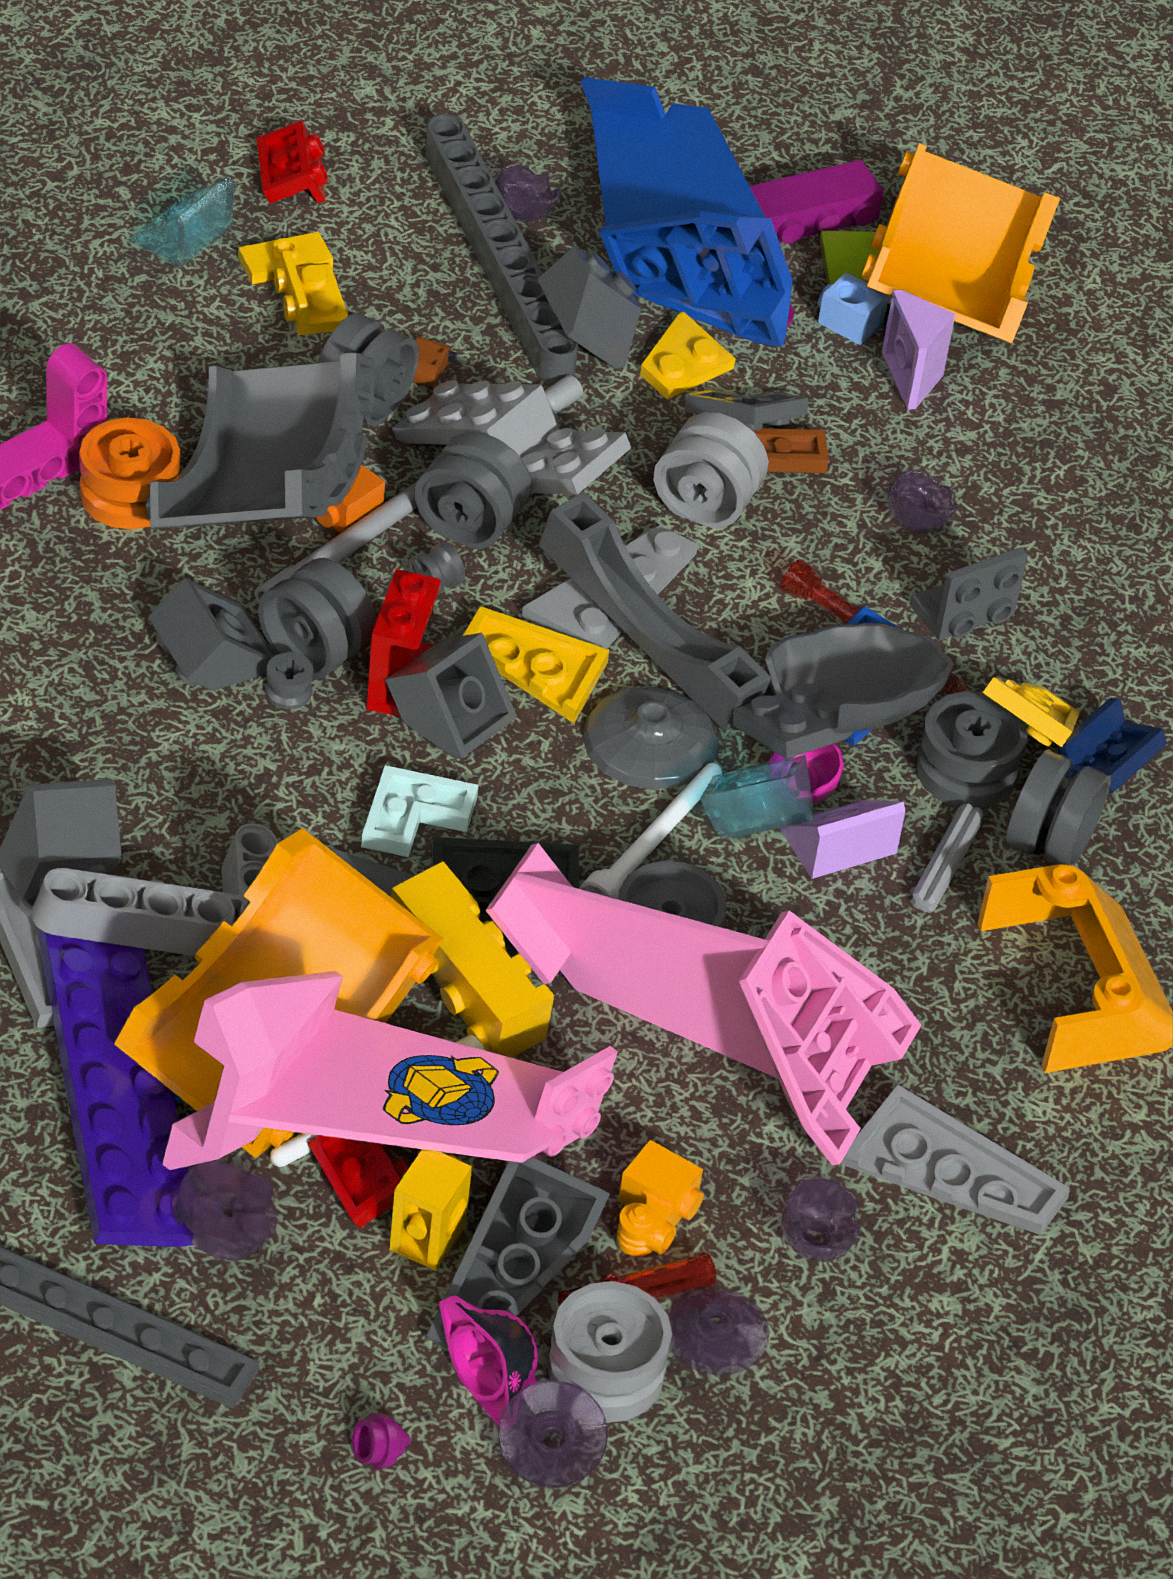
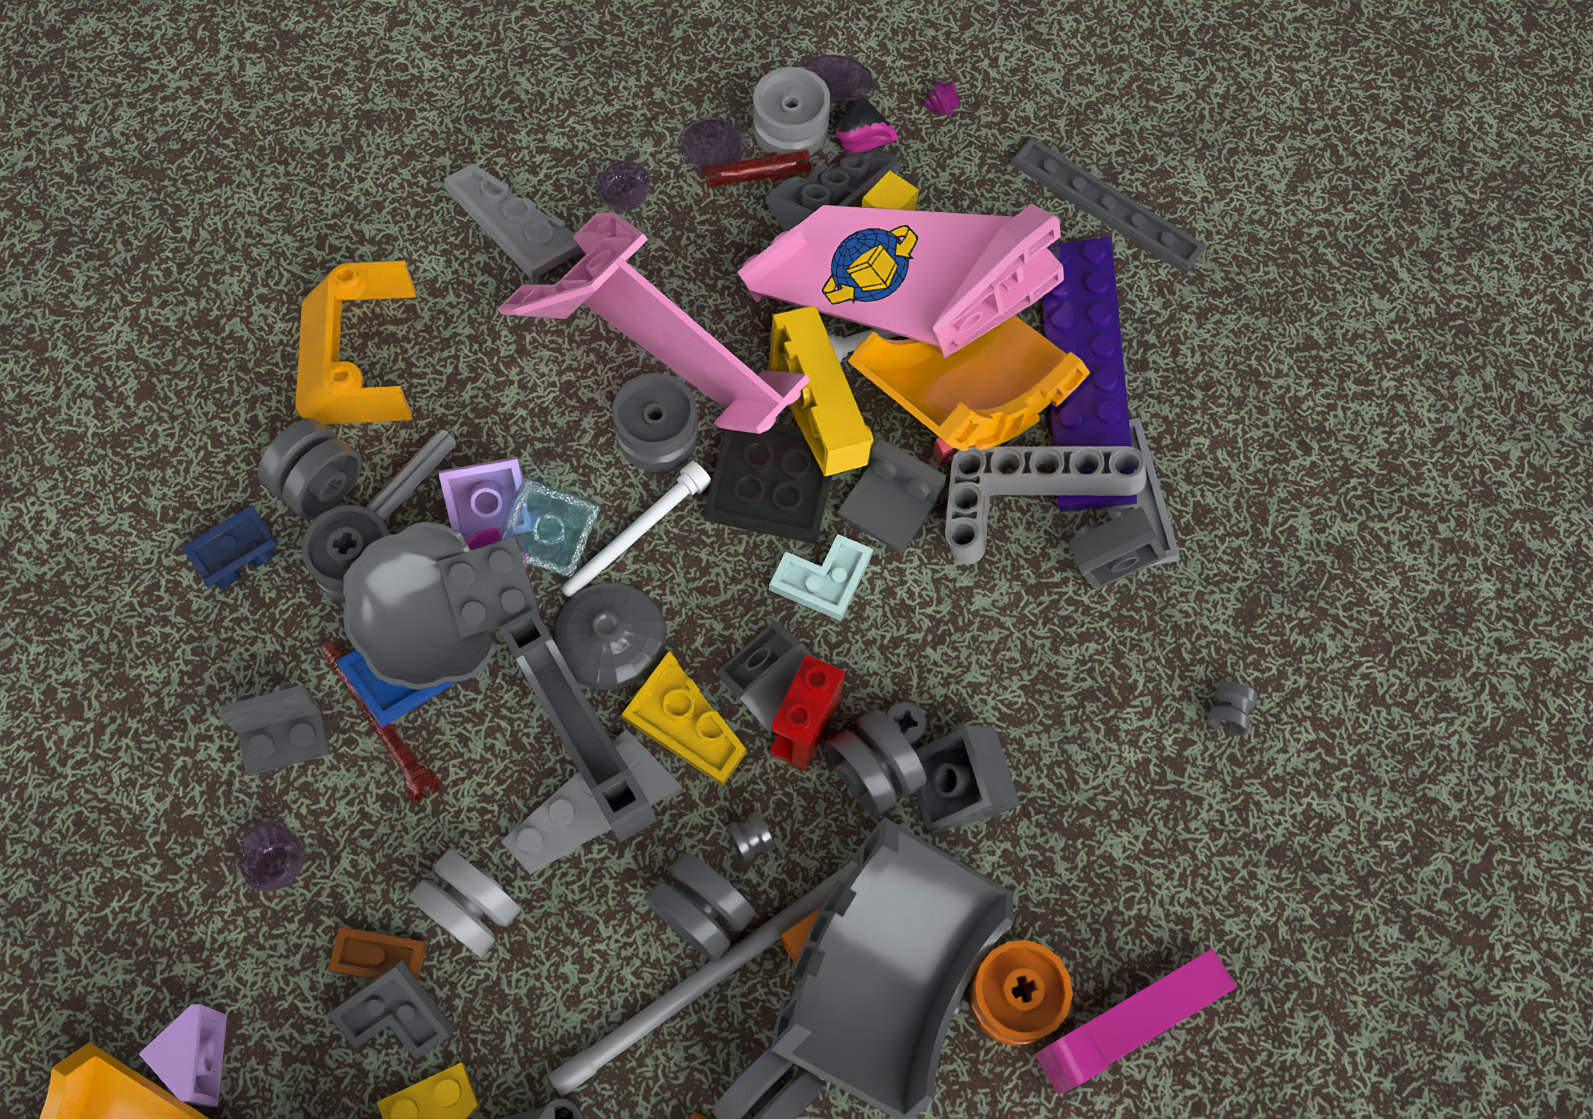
camera: 165 degrees left, 20 degrees up
(522, 419) = (645, 984): light grey bracket -> none
(656, 1194) = (725, 222): light orange brick -> none
(1047, 714) = (282, 559): yellow wing -> none

